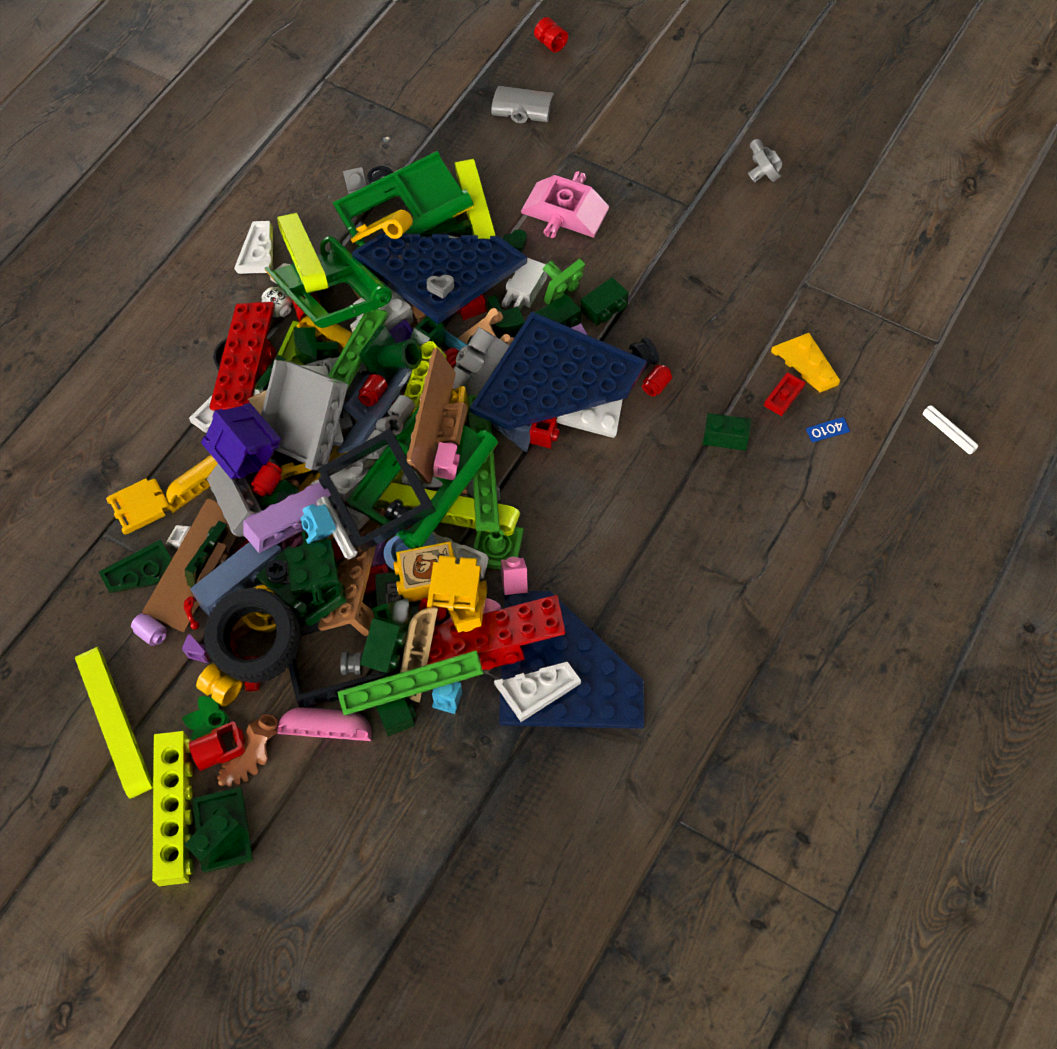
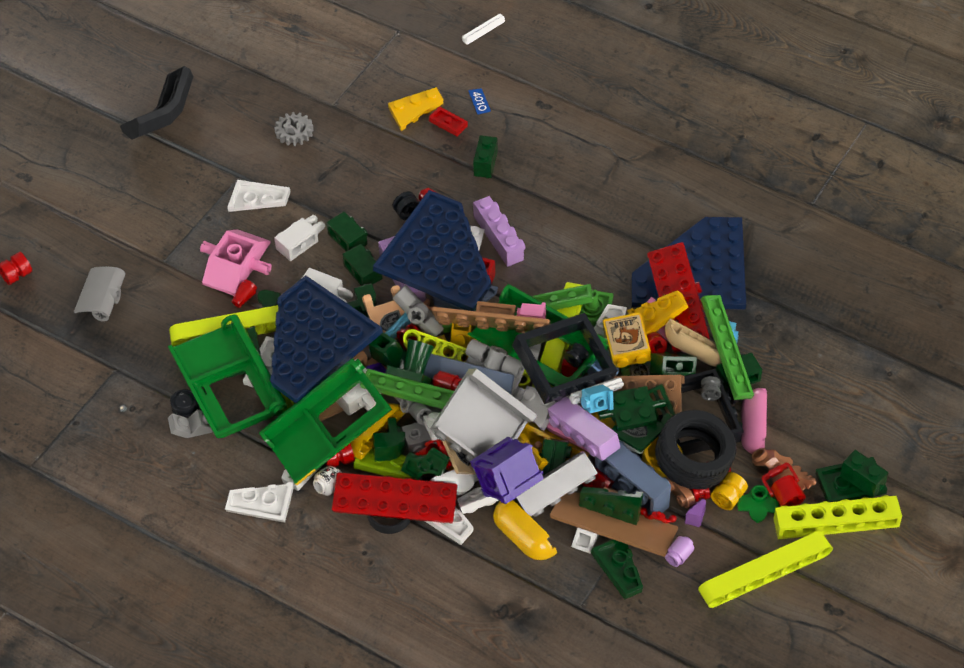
camera: 90 degrees left, 10 degrees down
(140, 504) = (552, 575): yellow plate -> none
(267, 479) = (545, 449): red brick -> none
(270, 568) = (638, 427): black bush -> none
(302, 253) = (283, 448): neon yellow beam -> none
(383, 645) = (697, 360): dark green brick -> none
(393, 225) = (263, 368): yellow door -> none
(440, 285) = (343, 327): light grey tile -> none
(454, 583) = (645, 308): yellow plate -> none
(514, 576) = (622, 291): bright pink brick -> none
(522, 218) = (244, 292): none -> red cone
(535, 690) = (721, 273): white wing -> none
(562, 281) = (329, 255): bright green plate -> none
(598, 258) = (298, 237): none -> white hinge
(609, 446) = (499, 231): none -> lavender brick
(657, 219) = (257, 195): none -> white wing
(757, 244) = (294, 129): none -> light grey gear
(764, 128) = (168, 107): none -> black piece
(768, 162) = (207, 113): light grey pin -> none

